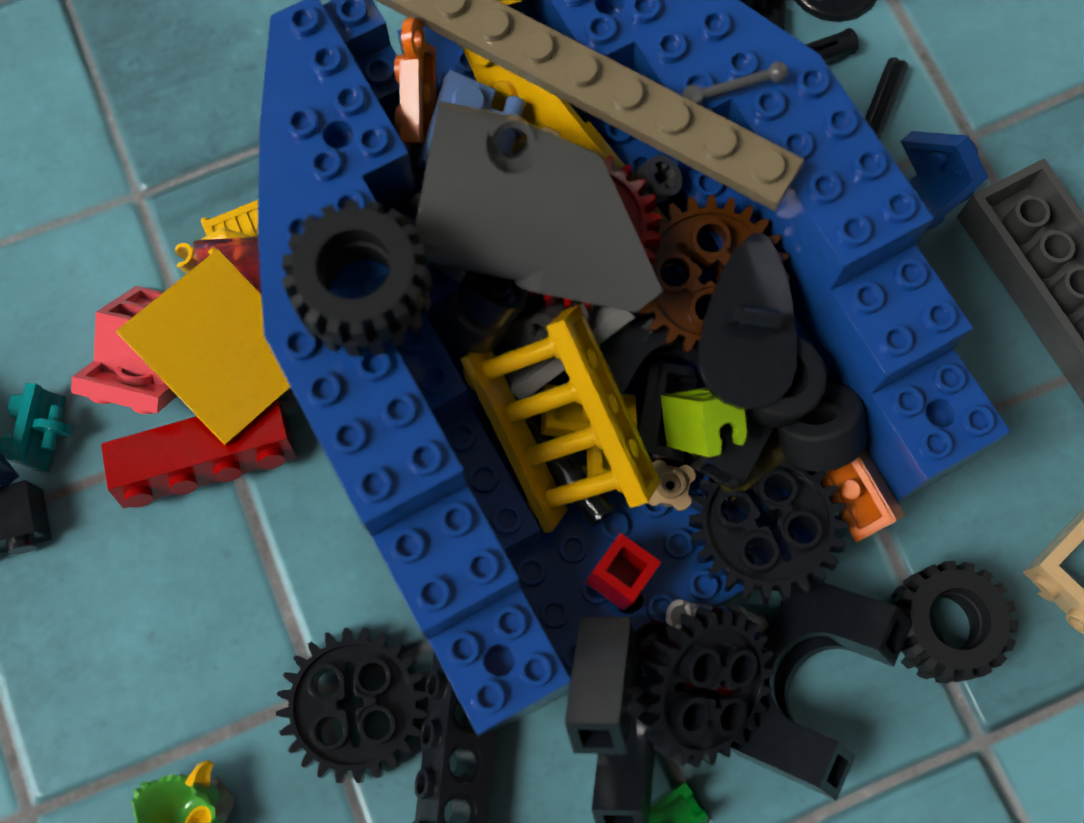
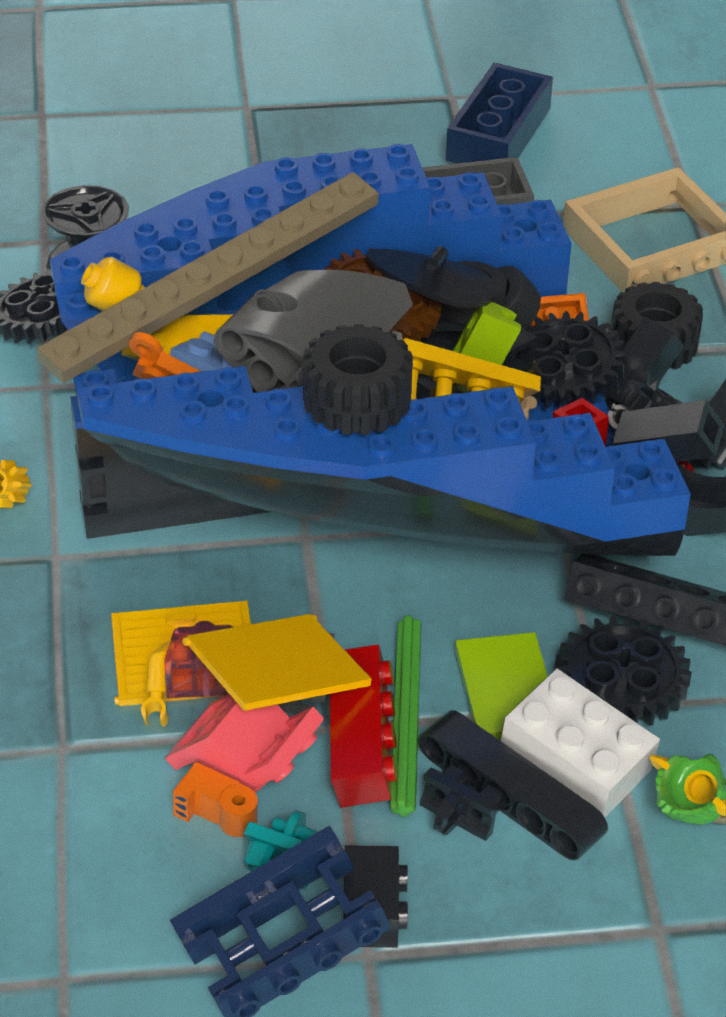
camera: 75 degrees left, 30 degrees down
(79, 344) = (215, 799): none -> orange leg
(136, 557) = (445, 794): none -> black hips
(165, 624) = (528, 793): none -> black beam
(220, 681) = (580, 741): none -> white brick
(225, 497) = (406, 715): none -> bright green axle
(311, 585) = (499, 675): none -> lime tile
(777, 73) = (276, 173): dark grey hinge -> none

